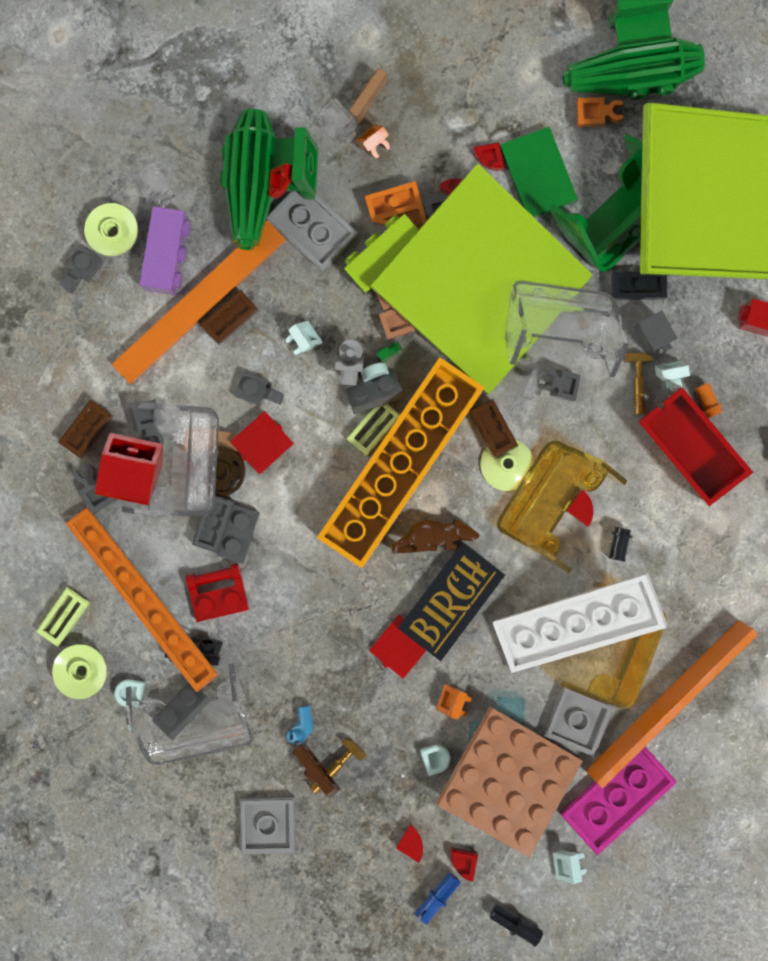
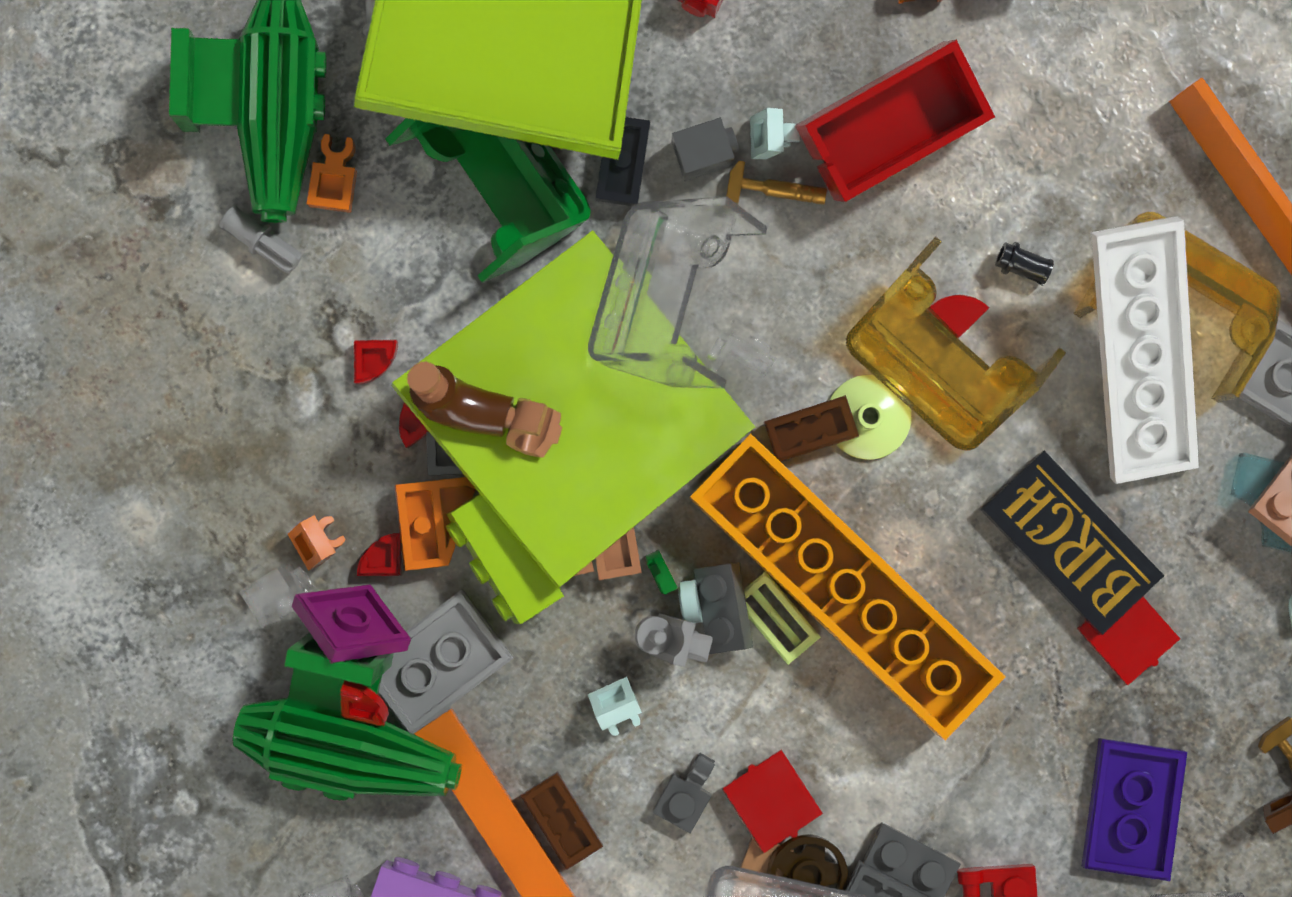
camera: 85 degrees left, 0 degrees up
(293, 666) = (1134, 809): none -> dark purple tile
(303, 728) = (1232, 809): dark azure arm -> none
(327, 166) = (350, 623): none -> magenta plate
(368, 95) = (242, 537): medium nougat tile -> none
(369, 182) = (382, 557): none -> red tile
(430, 534) = (963, 560): reddish brown animal -> none
(452, 702) = (1230, 568): orange tile -> none
(470, 210) = (479, 411): none -> piece
(538, 172) = (413, 286): green tile -> none
(550, 75) = (260, 239): none -> light grey axle
(561, 384) = (759, 310): dark grey plate -> none
(708, 400) = (822, 85): orange pin -> none

